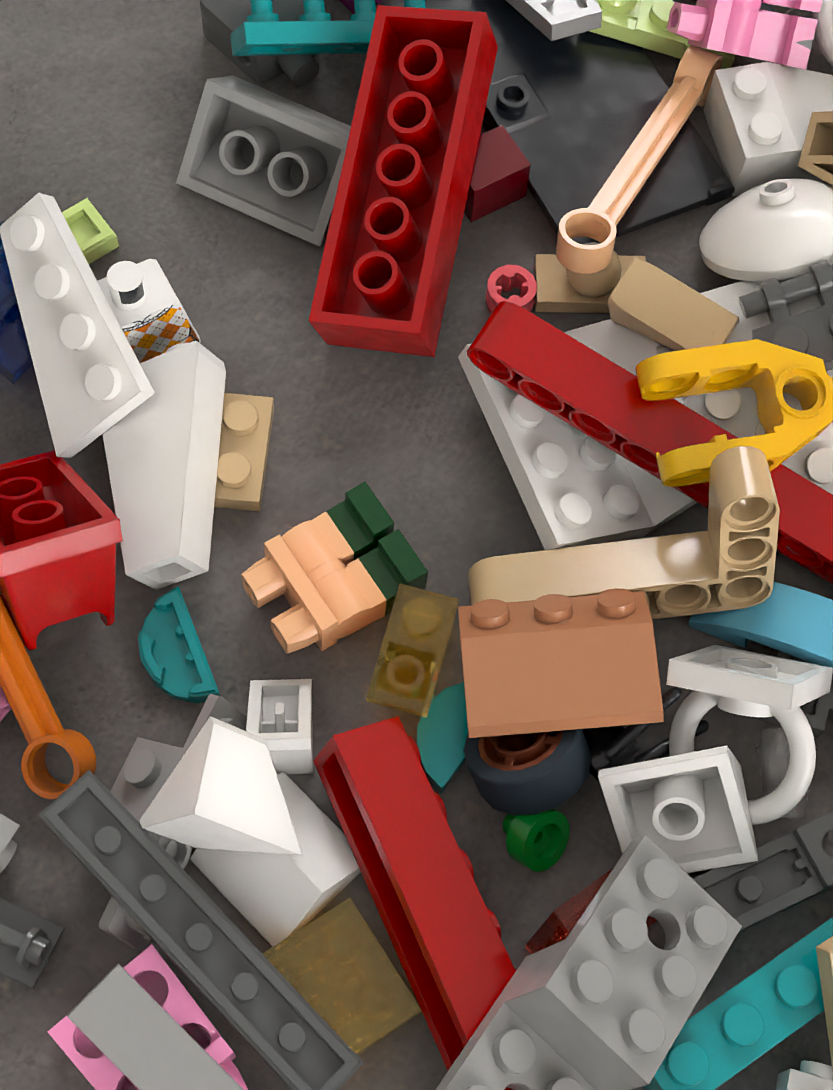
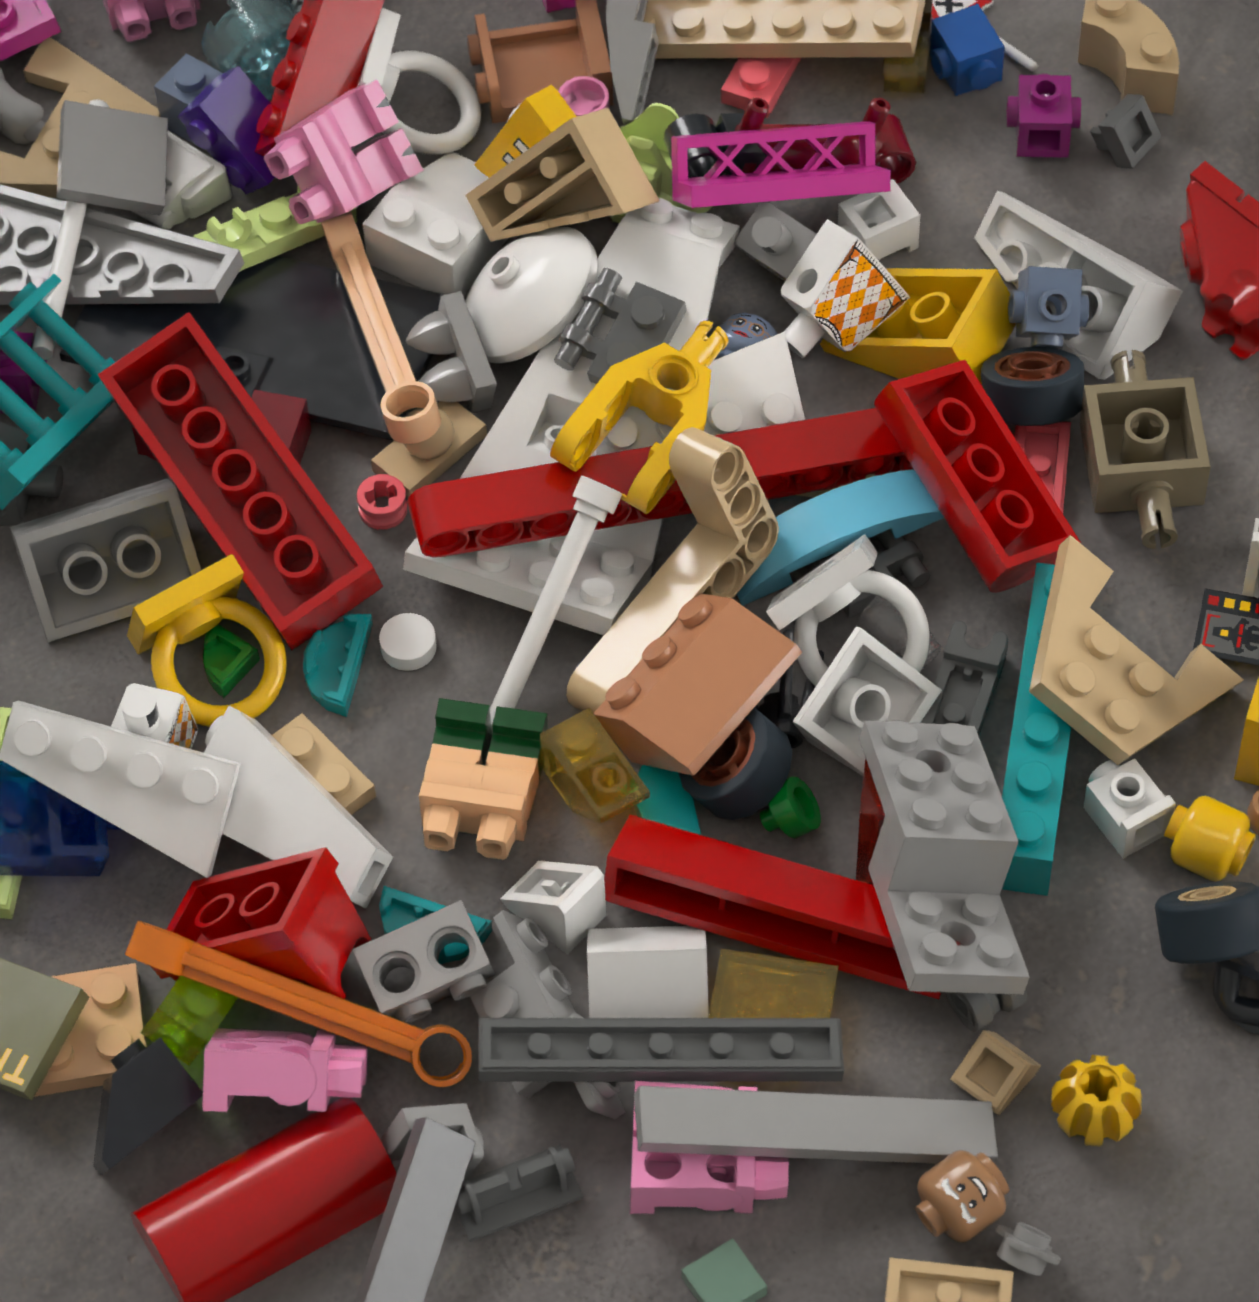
camera: 40 degrees left, 10 degrees down
(125, 673) = (418, 948): none -> light grey brick
(224, 796) = (585, 950): white slope -> none
(270, 246) = (192, 610): none -> yellow tile
(273, 308) = (227, 659): none -> green tile
(346, 380) = (334, 661): none -> teal tile
(410, 415) = (408, 641): none -> white tile
(628, 438) = (593, 505): none -> white piece
(668, 309) = (516, 411): tan slope -> none
(686, 206) = (467, 372): none -> light grey tile

